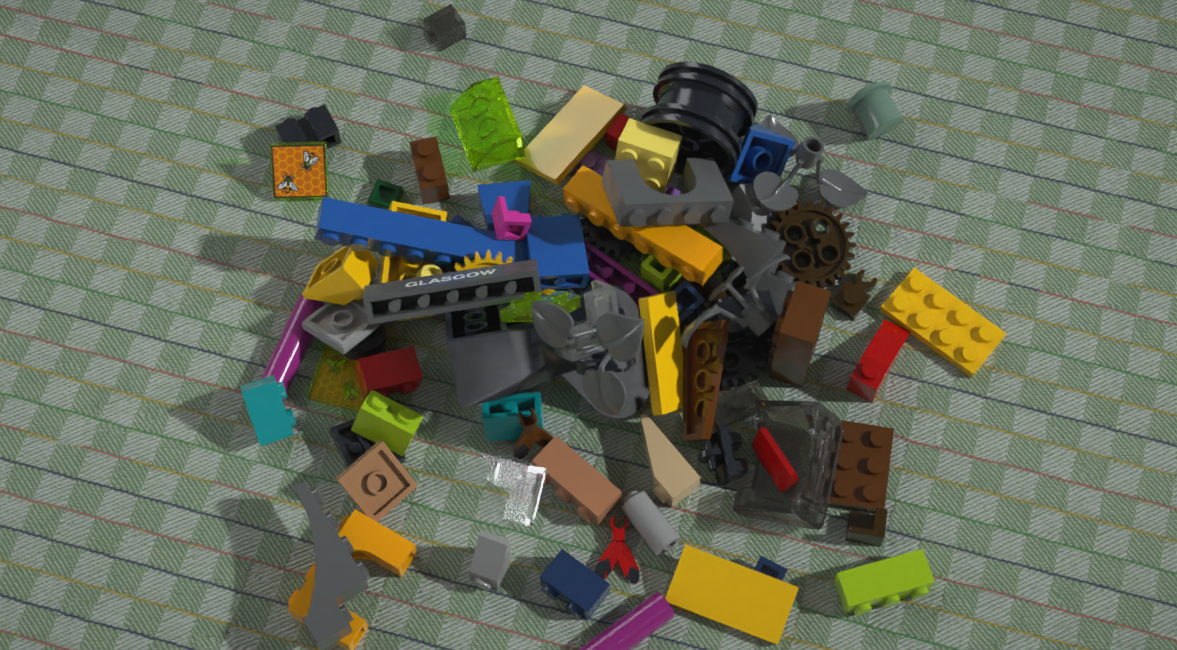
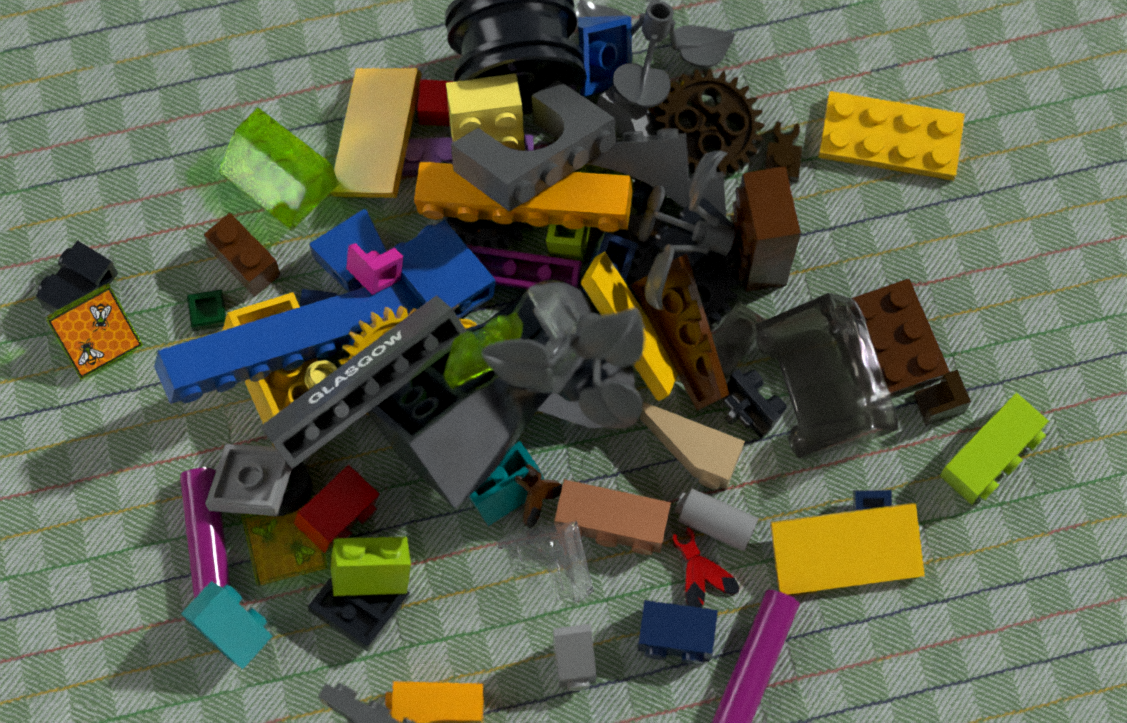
camera: 30 degrees left, 5 degrees up
(341, 276) = (218, 429): yellow slope -> none
(376, 481) = (397, 637): medium nougat plate -> none
(444, 28) = (159, 81): clear smoke brick -> none
(774, 460) = (808, 380): red slope -> none
(877, 360) = (850, 213): red slope -> none

